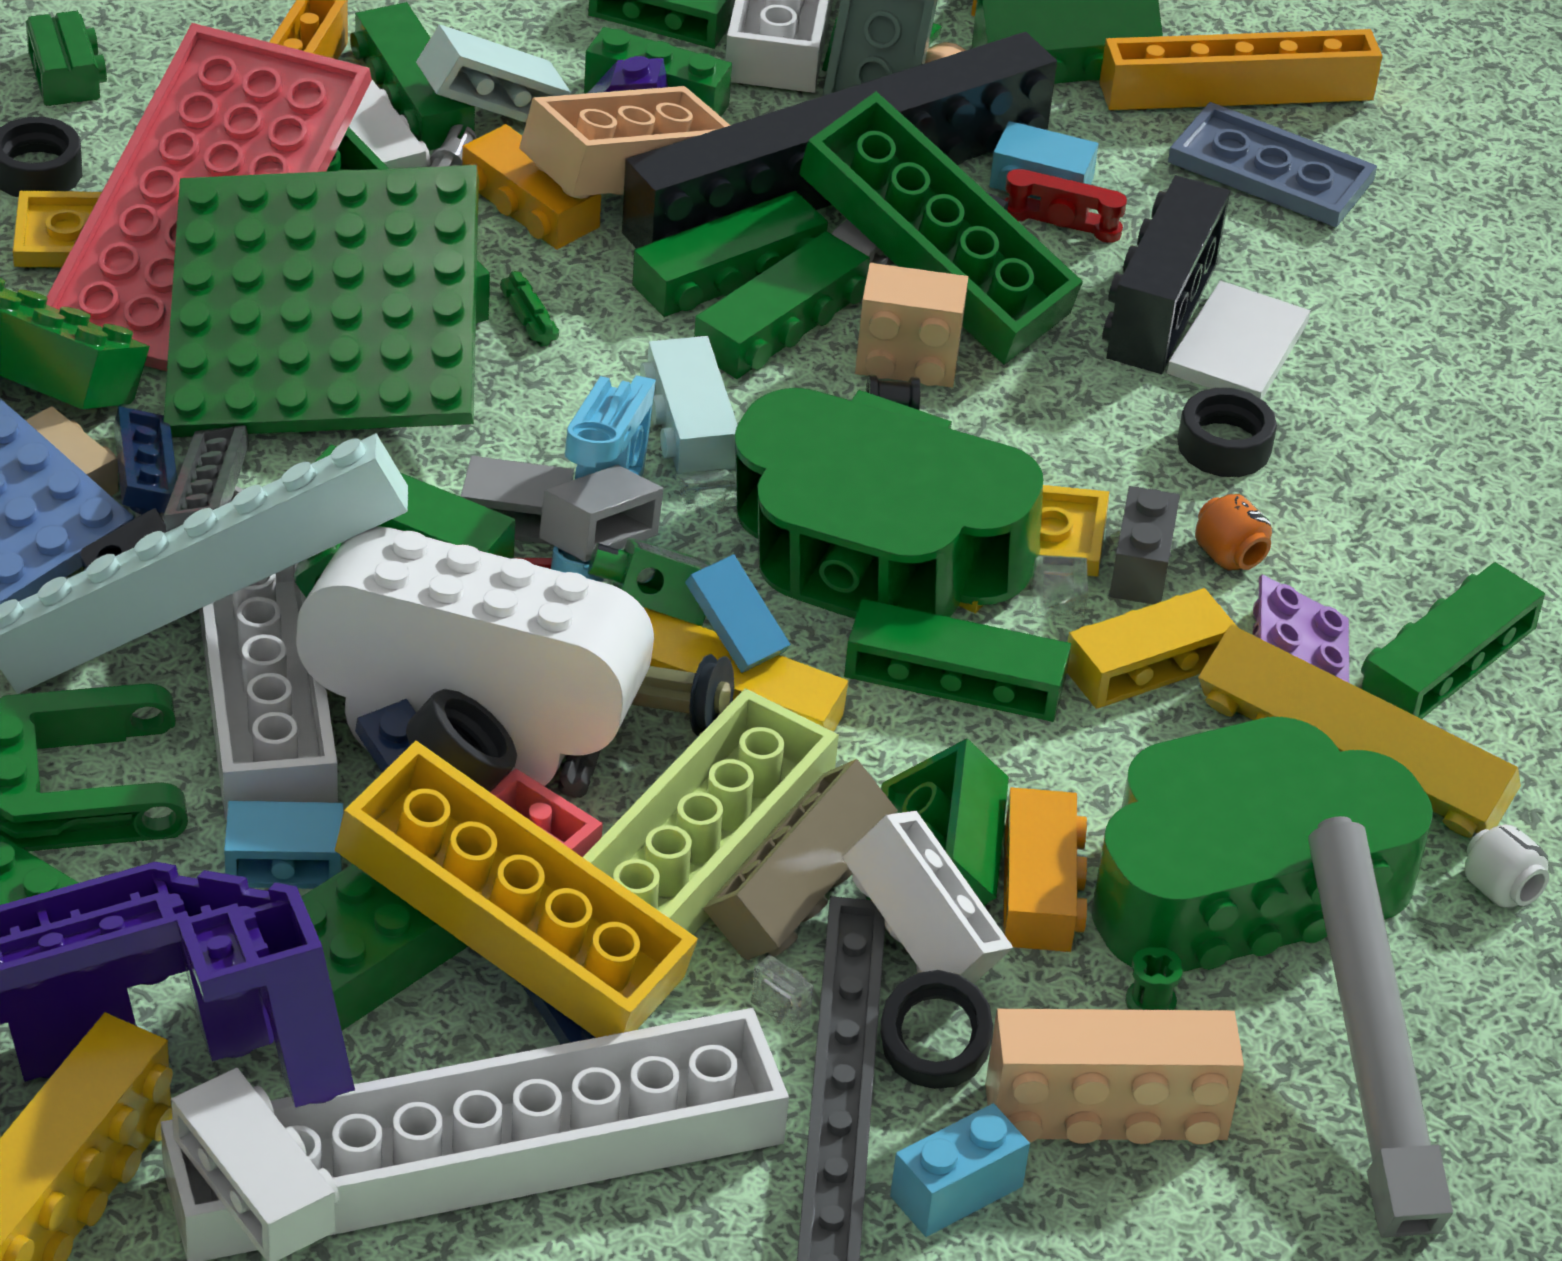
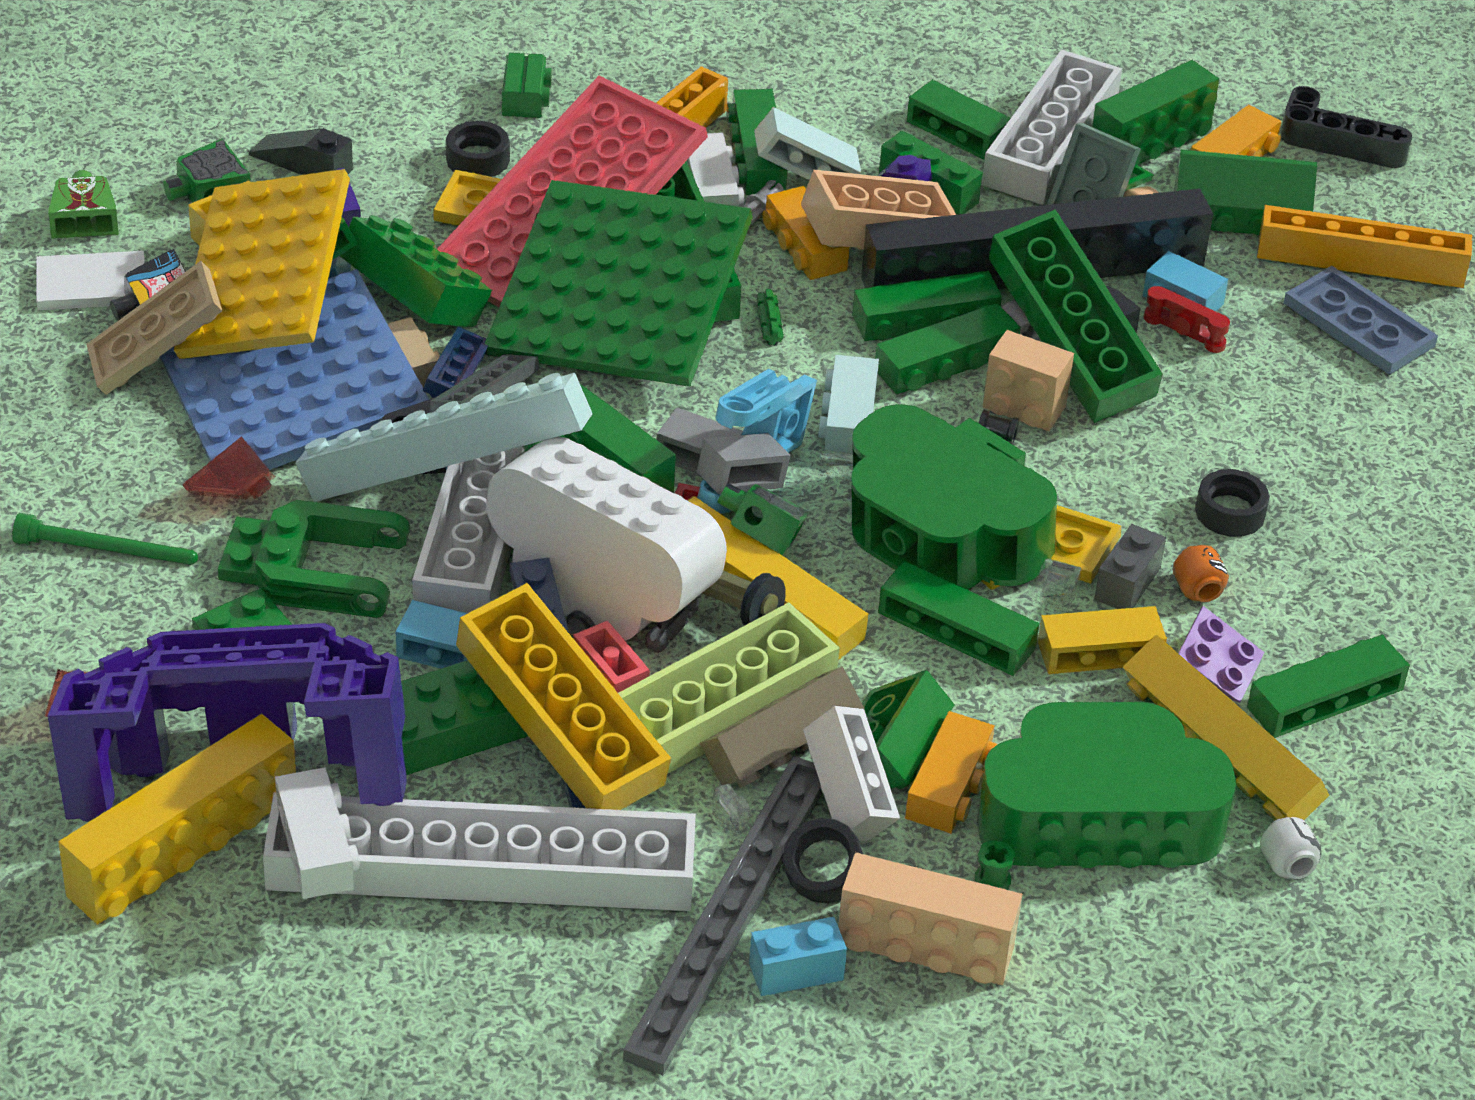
camera: 20 degrees right, 0 degrees up
(464, 737) = (582, 583): black tyre -> none
(737, 613) = (803, 550): dark azure tile -> none
(1165, 274) = (1234, 381): black brick -> none
(1238, 340) = (1275, 441): white tile -> none
(1405, 1170) = (1125, 933): light grey brick -> none

